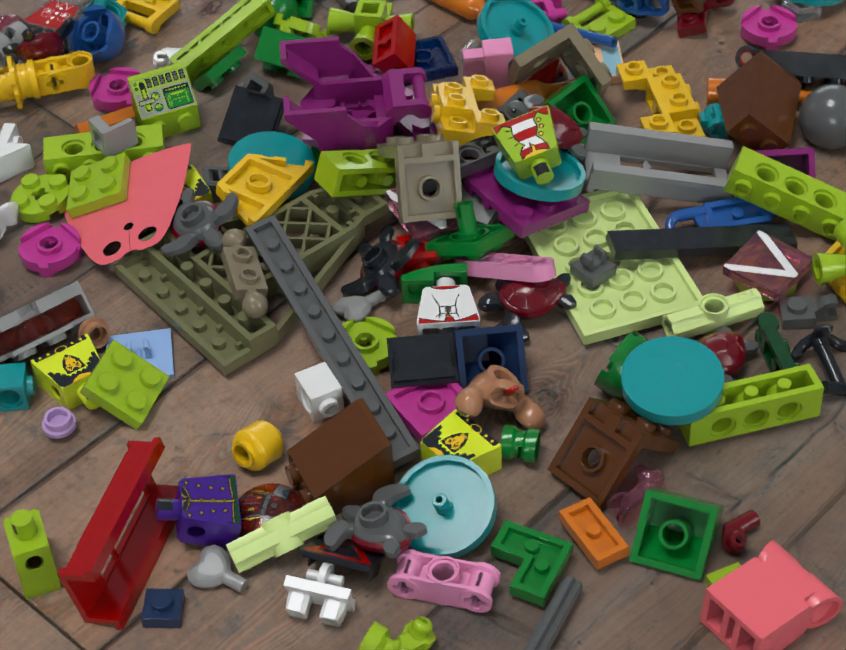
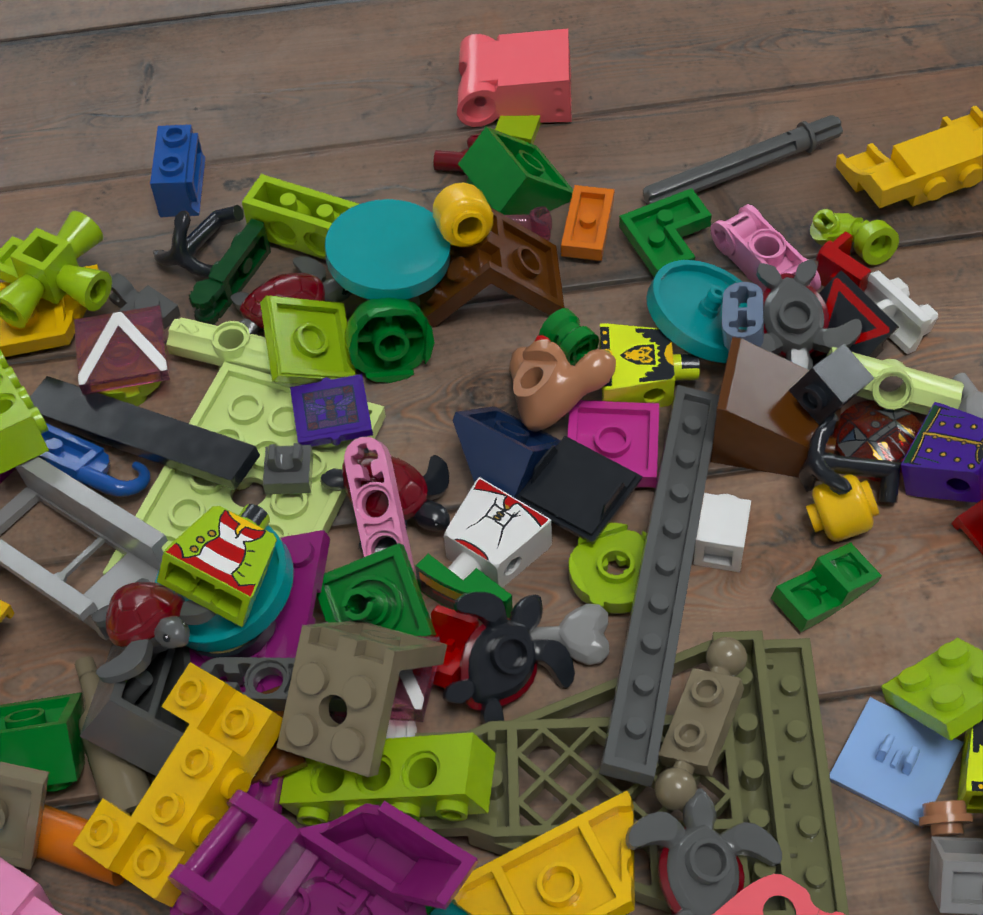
camera: 140 degrees left, 10 degrees up
(238, 408) = (827, 587): none -> green slope
(284, 441) = (827, 466): none -> black piece
(308, 469) = (831, 384): none -> brick
(380, 601) = (836, 257): none -> red bracket
(401, 489) = (749, 316): none -> sand blue beam
(607, 308) = (331, 411): none -> dark purple piece
(638, 404) = (462, 214): none -> yellow head
(669, 316) = (305, 340): none -> lime tile

